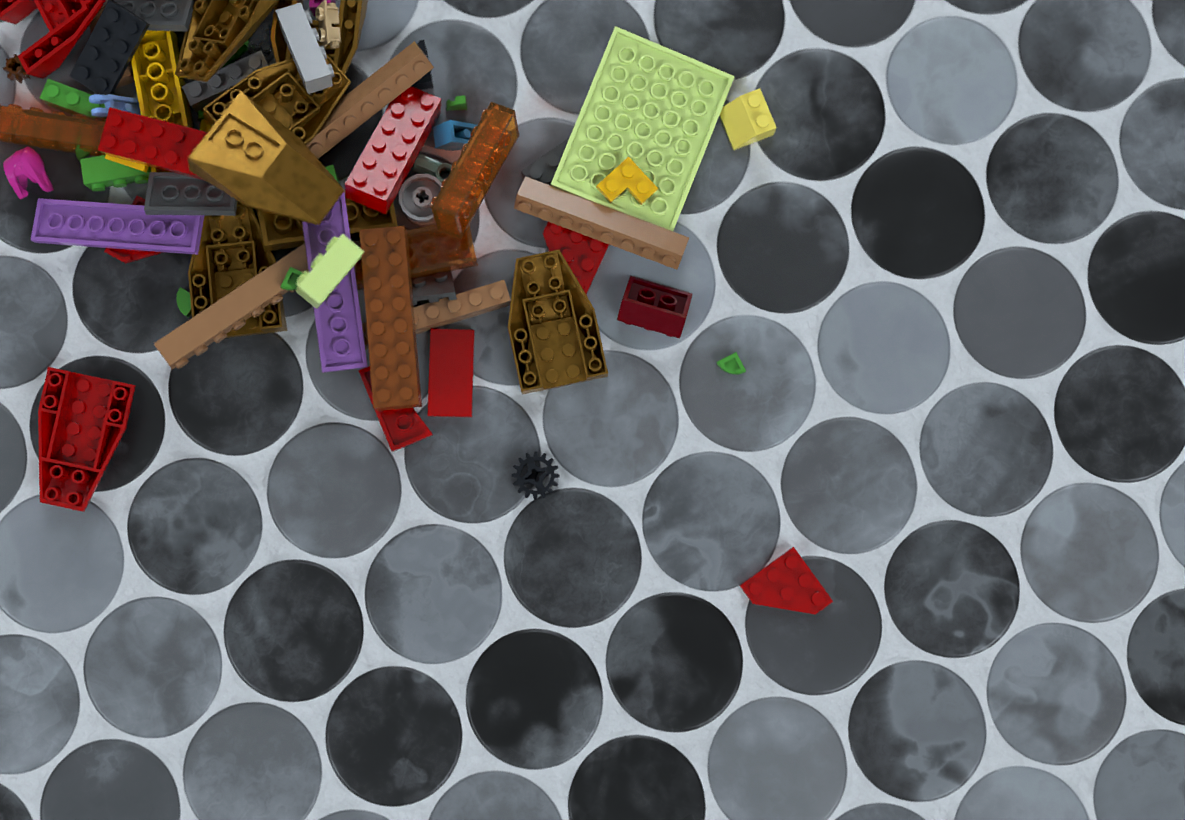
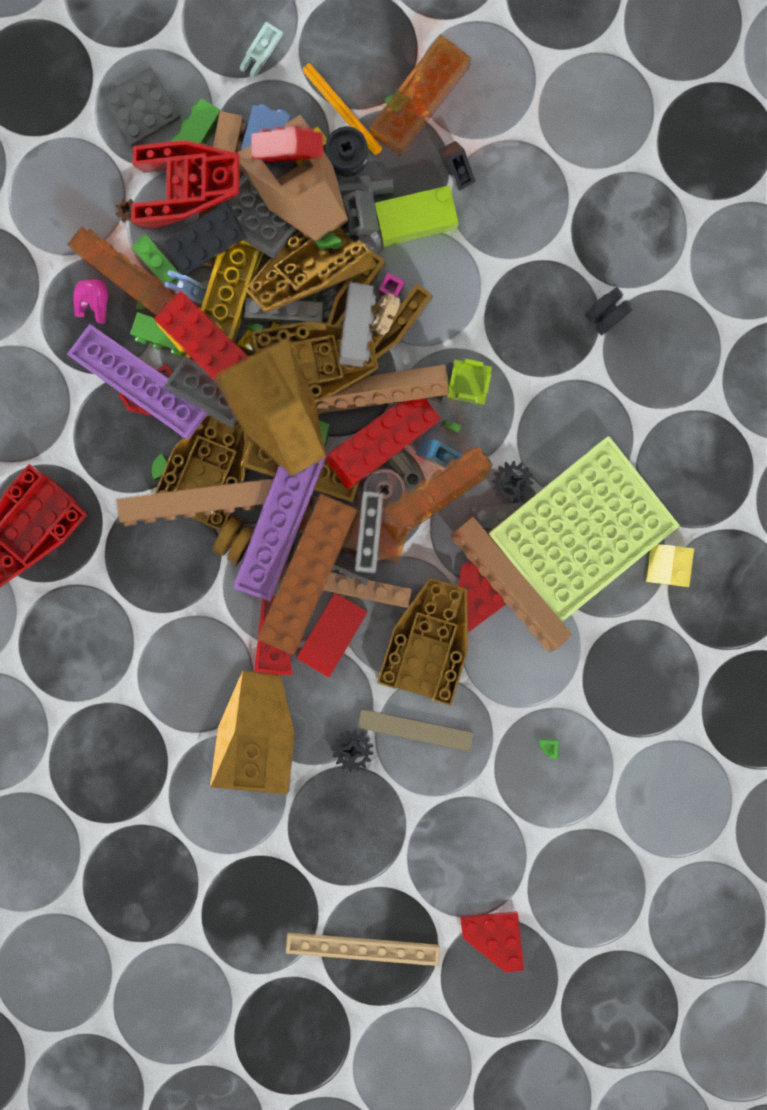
camera: 30 degrees right, 5 degrees up
(290, 279) = (250, 504): bright green tile -> none
(298, 329) = (233, 540): none -> pearl gold wheel
(328, 270) = (279, 517): yellowish green brick -> none
(429, 242) = (369, 532): none -> light grey brick
(429, 516) = (255, 737): none -> pearl gold wedge
(450, 50) = (469, 381): none -> lime panel
(539, 116) = (510, 473): none -> black gear
(588, 421) = (415, 730): none -> dark tan tile
(627, 177) = (551, 561): yellow plate -> none
(654, 307) = (515, 672): dark red slope -> none
(658, 673) = (363, 949): none -> tan tile

